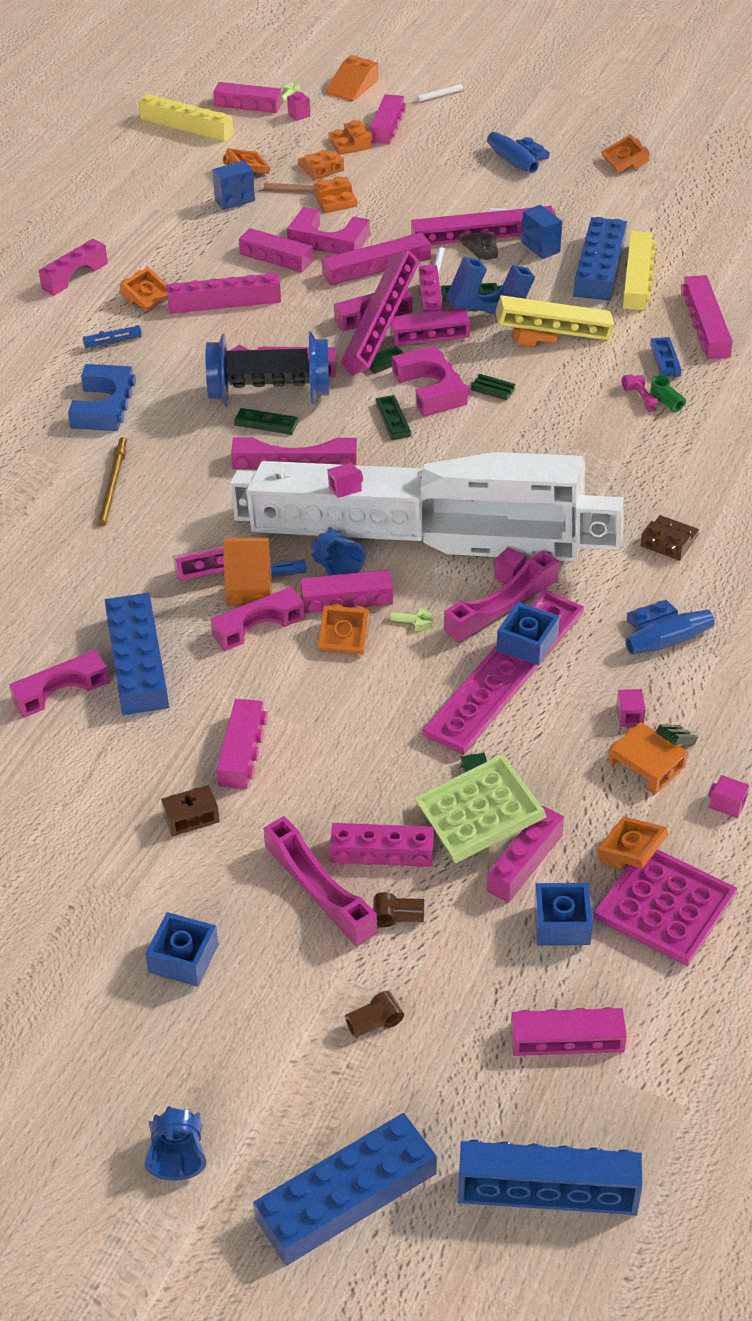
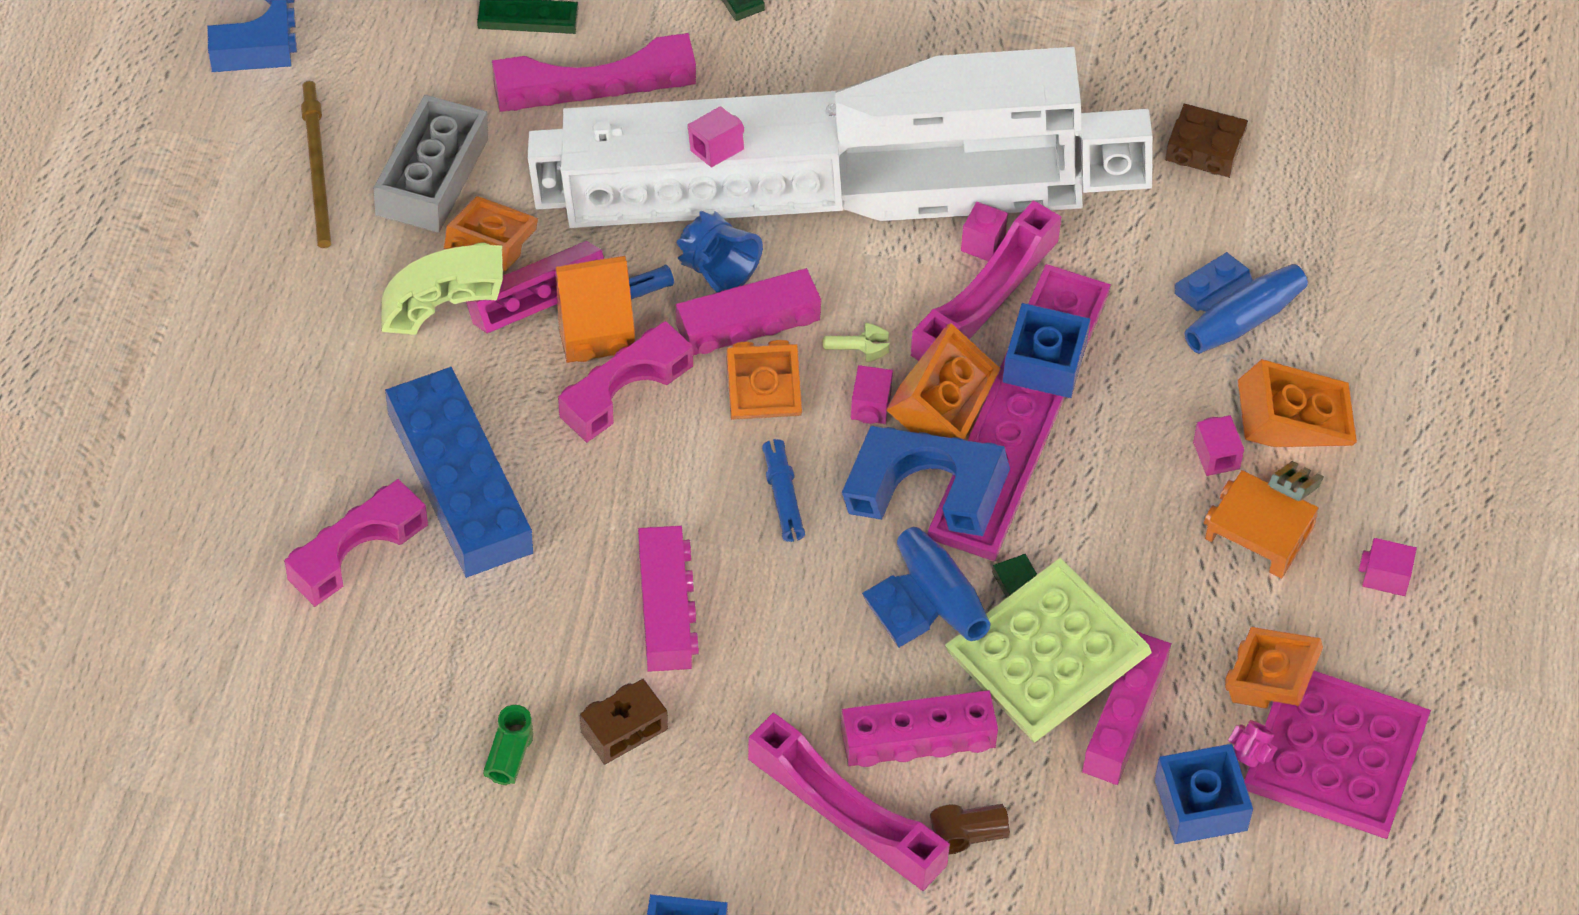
camera: 15 degrees left, 10 degrees up
(113, 812) = (509, 746): none -> green piece
(158, 541) = (443, 276): none -> yellowish green brick
(178, 486) = (431, 163): none -> light grey brick
(200, 528) = (491, 224): none -> orange plate
(337, 685) = (780, 477): none -> blue pin
(410, 647) = (871, 394): none -> dark pink brick
(410, 682) = (894, 454): none -> blue arch
(416, 762) = (933, 588): none -> blue plate
(456, 648) = (945, 387): none -> orange slope
(603, 886) = (1253, 743): none -> dark pink gear
(688, 693) = (1295, 407): none -> orange slope

